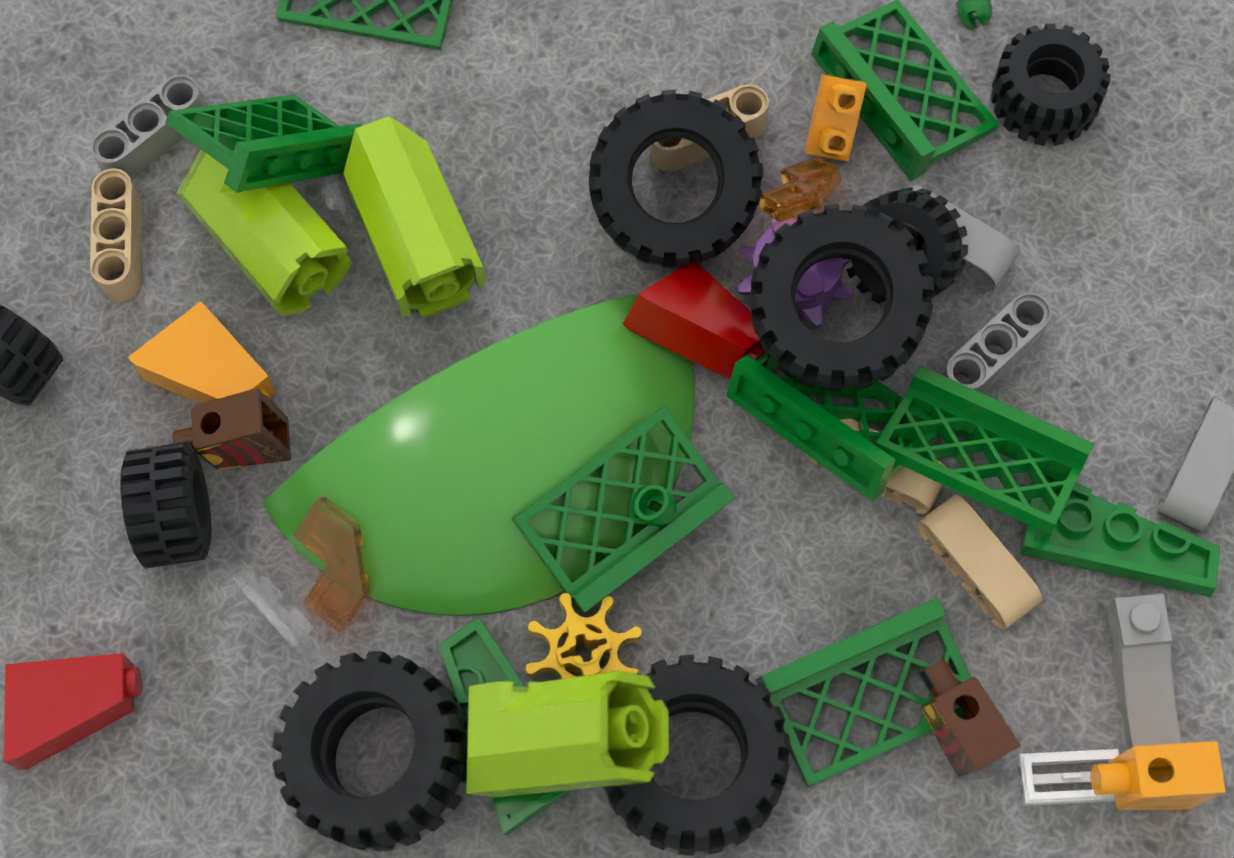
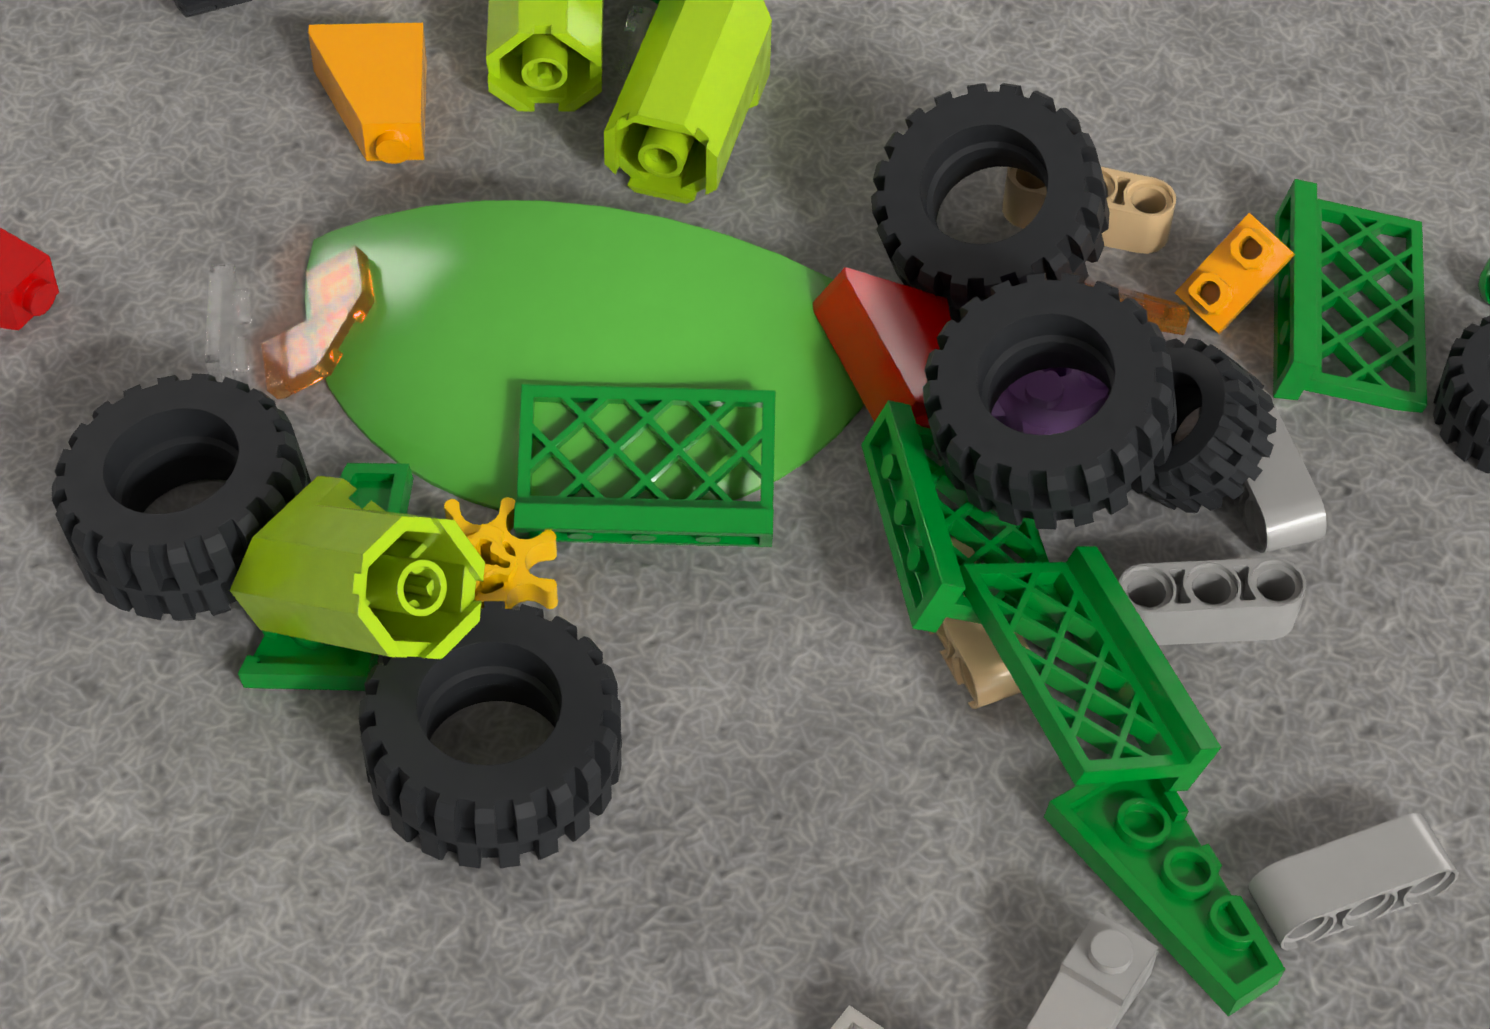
camera: 35 degrees right, 15 degrees down
(165, 505) = (212, 158): black tyre -> none
(238, 431) = (347, 153): reddish brown torso -> none
(659, 496) = (677, 476): green hinge -> none
(840, 659) = (757, 767): green fence -> none
(981, 560) = (987, 789): tan beam -> none
(981, 732) = (806, 909): reddish brown torso -> none

